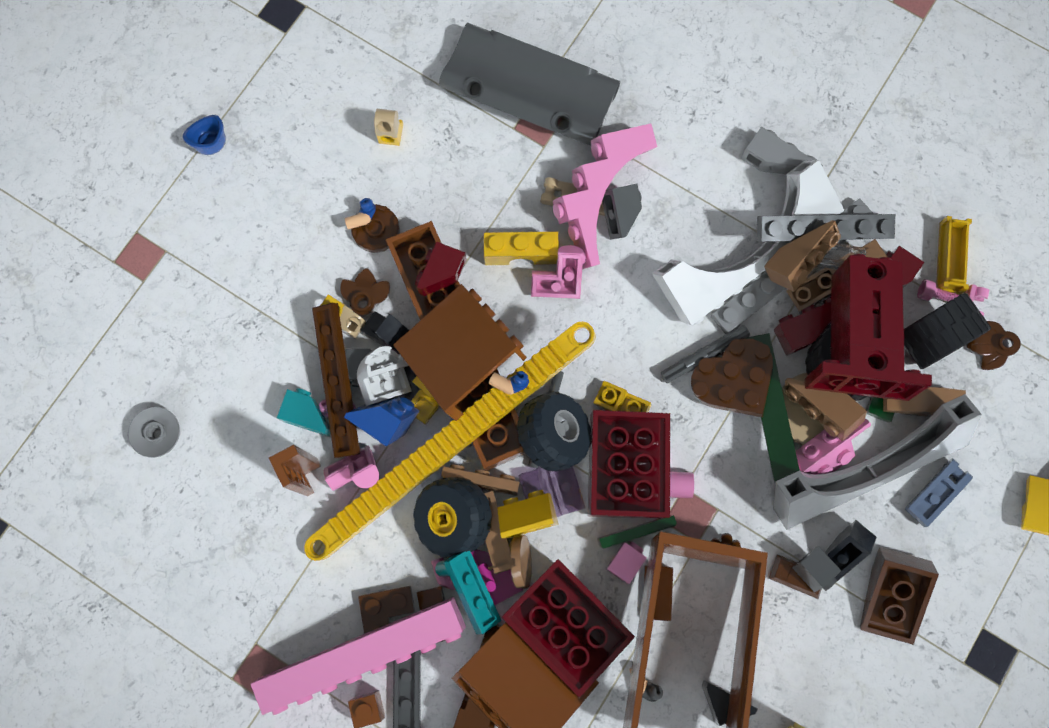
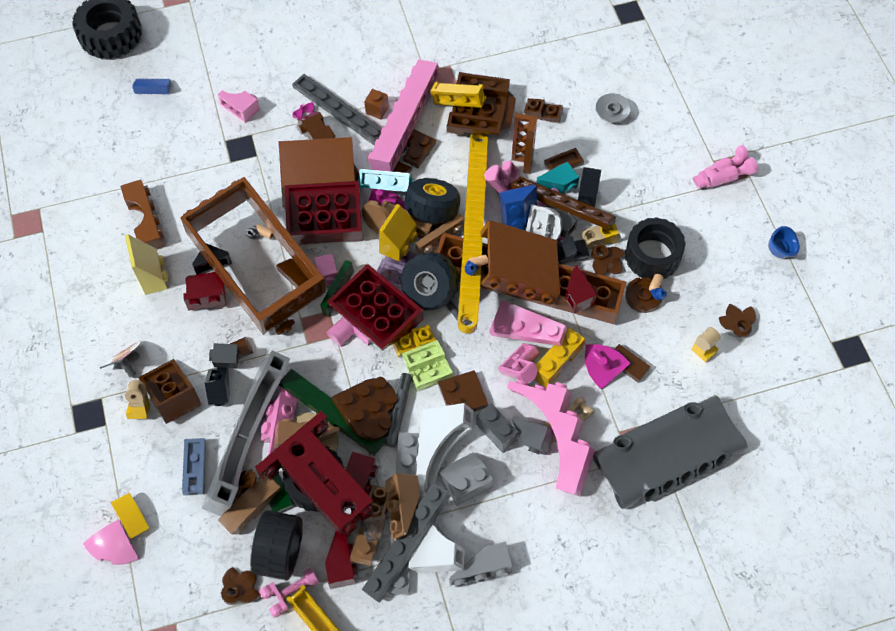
camera: 130 degrees right, 15 degrees down
(154, 254) = (725, 169): none -> bright pink piece
(217, 510) = (543, 111): none -> reddish brown slope
(271, 431) = (571, 156): none -> reddish brown tile
(272, 580) = (495, 113): none -> reddish brown slope
(278, 619) = (458, 95): none -> yellow container
(293, 369) = (589, 185): none -> black slope
(300, 225) = (657, 230): none -> black tyre
(330, 127) = (736, 318): none -> reddish brown plate
(466, 187) = (637, 367): none -> reddish brown tile
(487, 206) = (604, 363): none -> dark pink shield
(515, 299) = (525, 325): none -> bright pink wing
(634, 310) = (463, 389): none -> reddish brown plate
(636, 367) = (427, 365): none -> yellowish green slope
(644, 246) = (496, 427): none -> dark grey brick
(715, 235) = (466, 478): none -> light grey slope
(772, 673) = (204, 291): none -> dark red bracket
(908, 422) = (246, 480): none -> reddish brown plate
(912, 680) = (125, 358): none -> dark grey shield
(943, 611) = (138, 400): none -> tan leg

